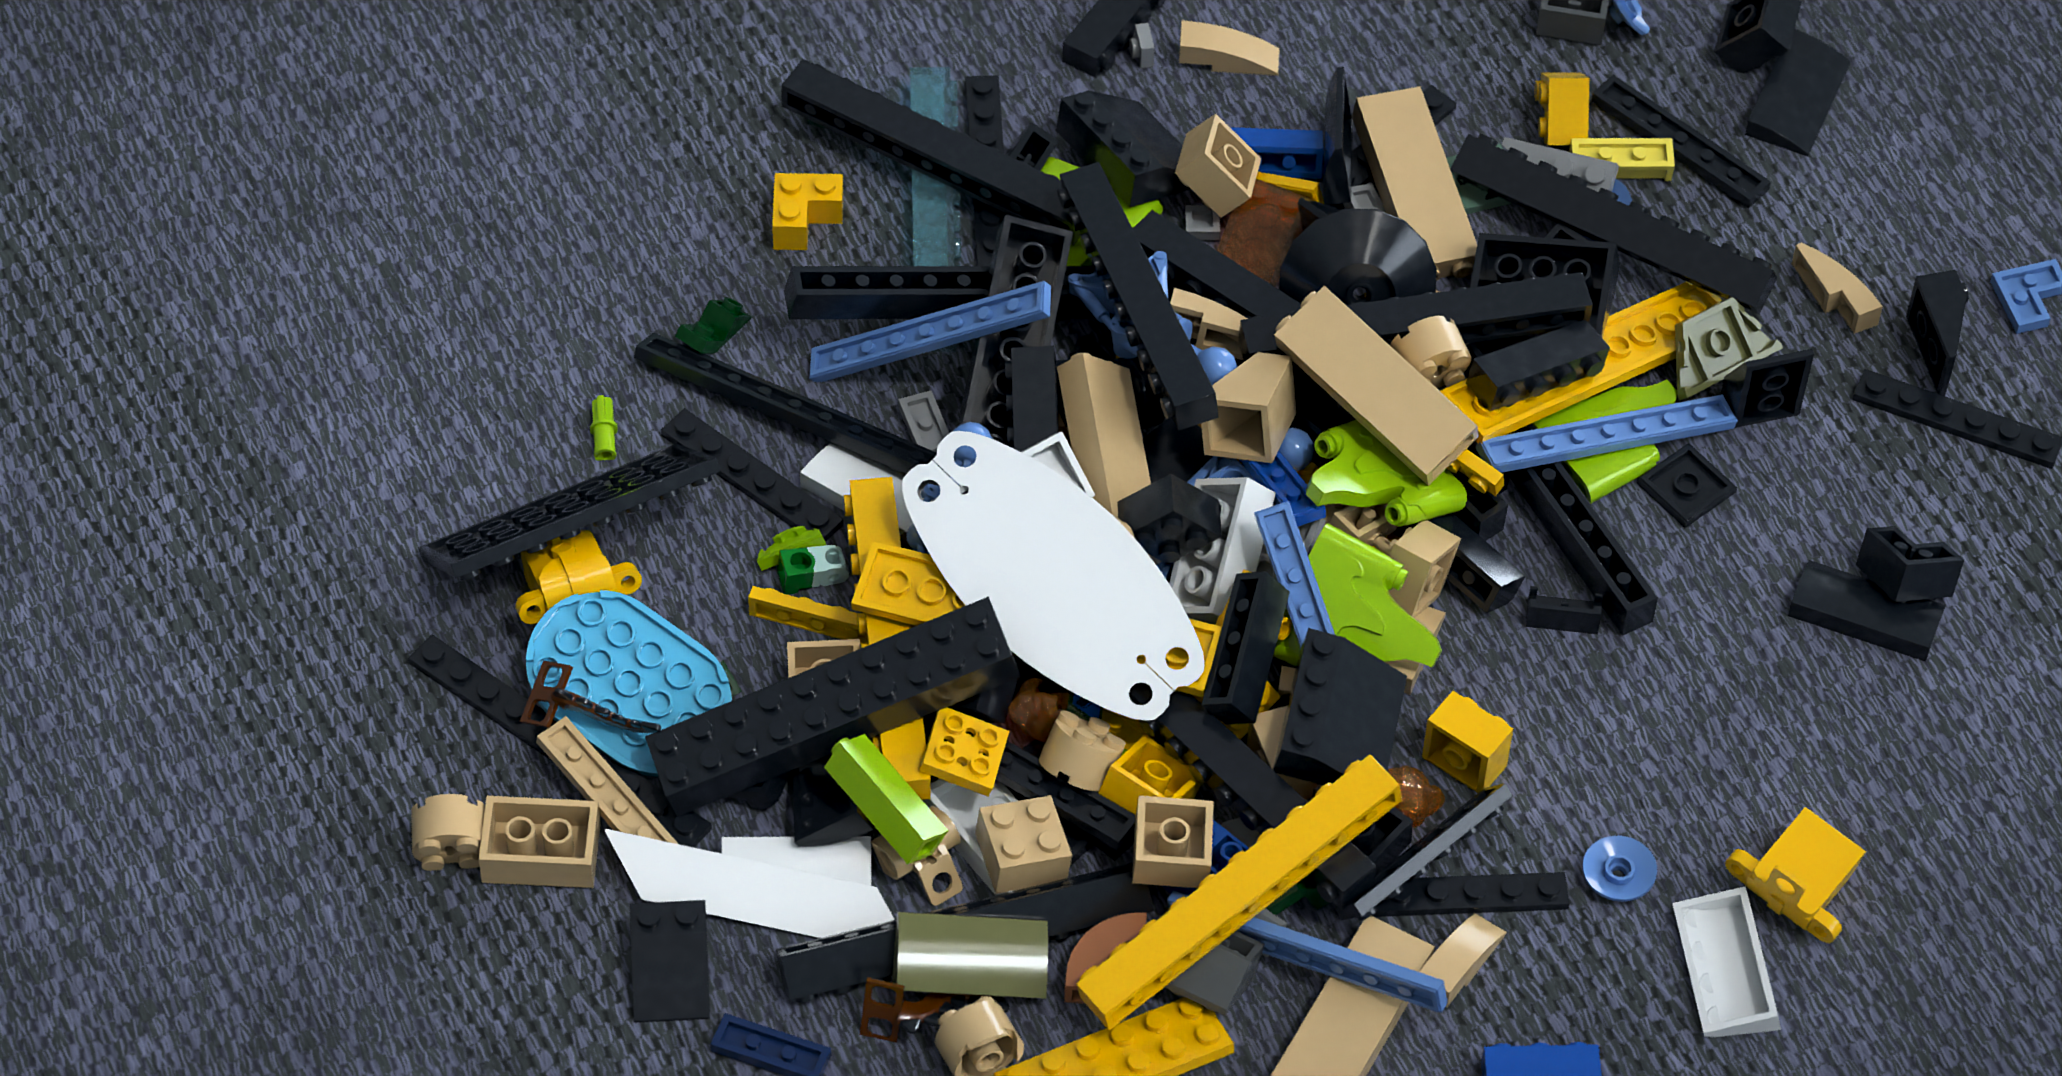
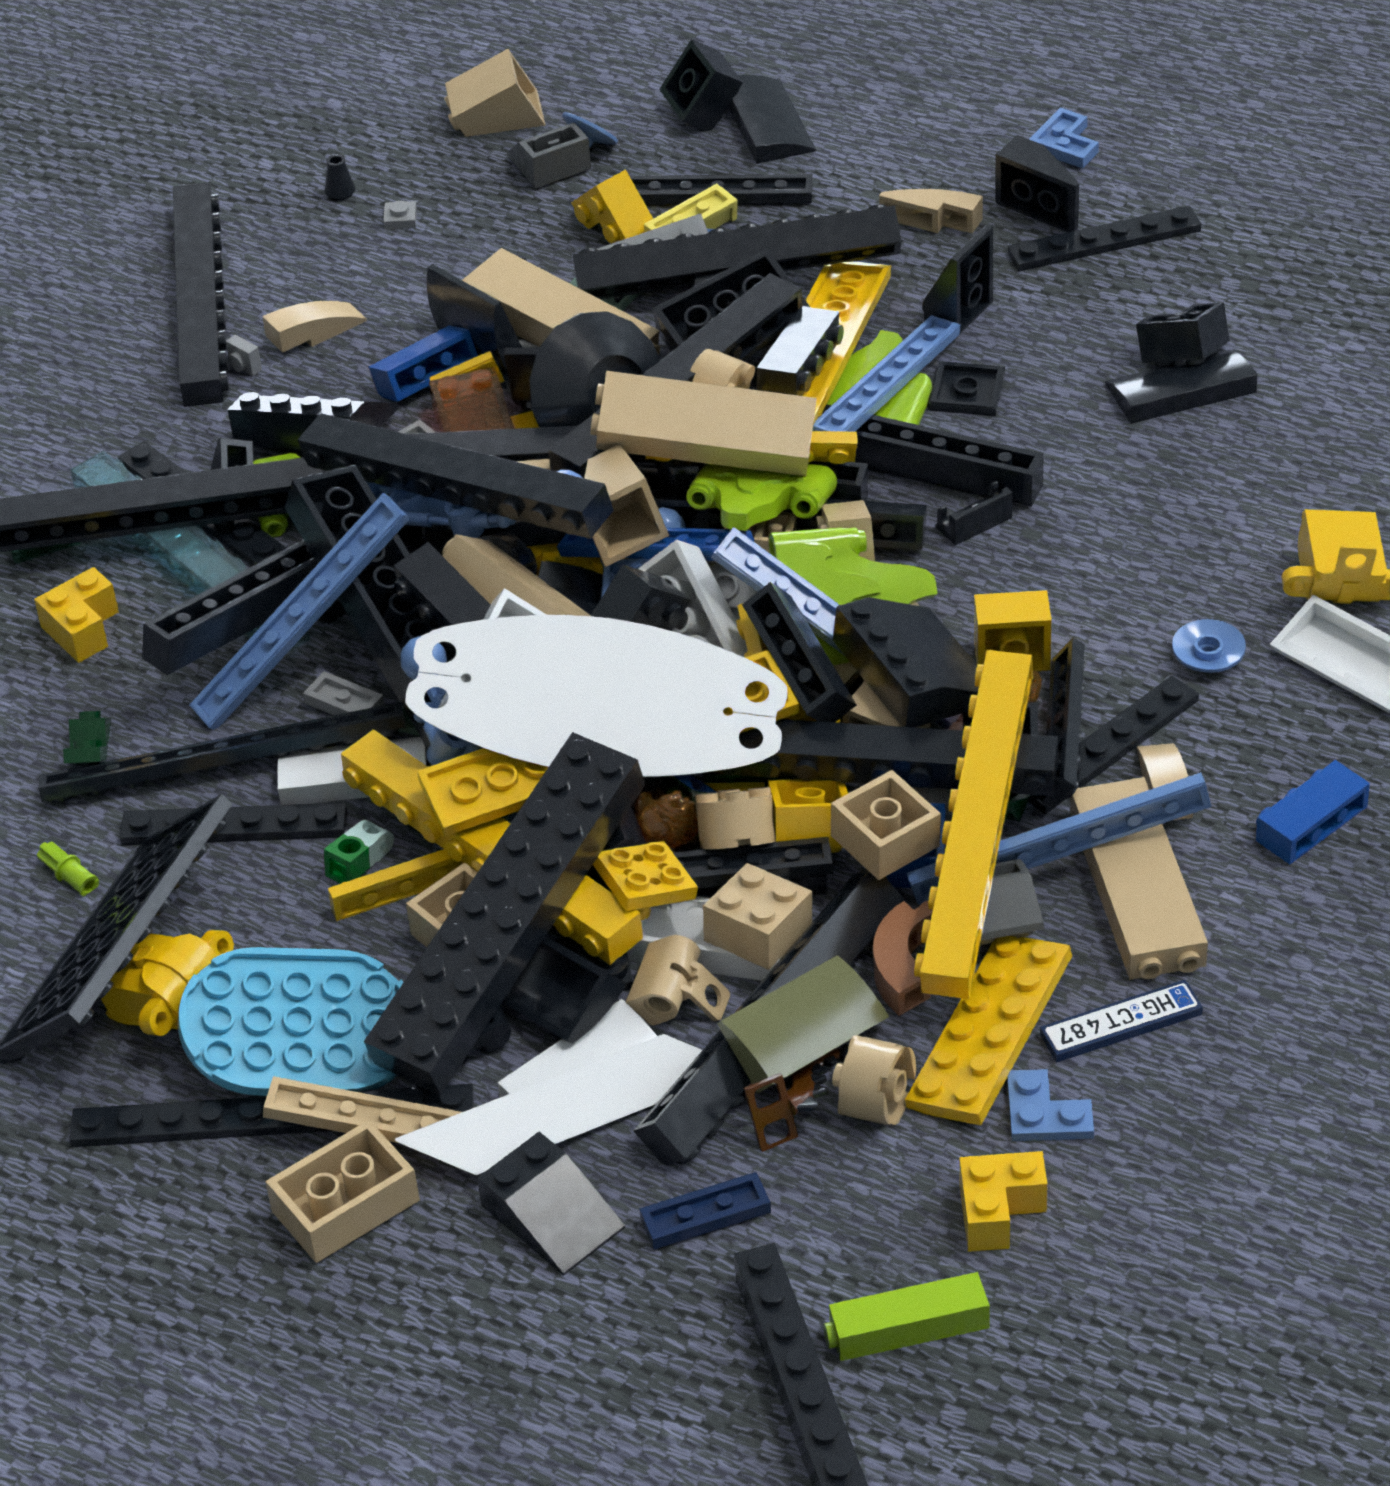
camera: 35 degrees left, 10 degrees down
(447, 831) = (254, 1236): tan brick -> none
(571, 701) = (268, 1058): reddish brown piece -> none
(789, 539) = (314, 846): lime plate -> none
(885, 798) = (621, 946): lime brick -> none
(1218, 166) = (402, 382): tan brick -> none
(1716, 344) = (896, 285): olive wing -> none

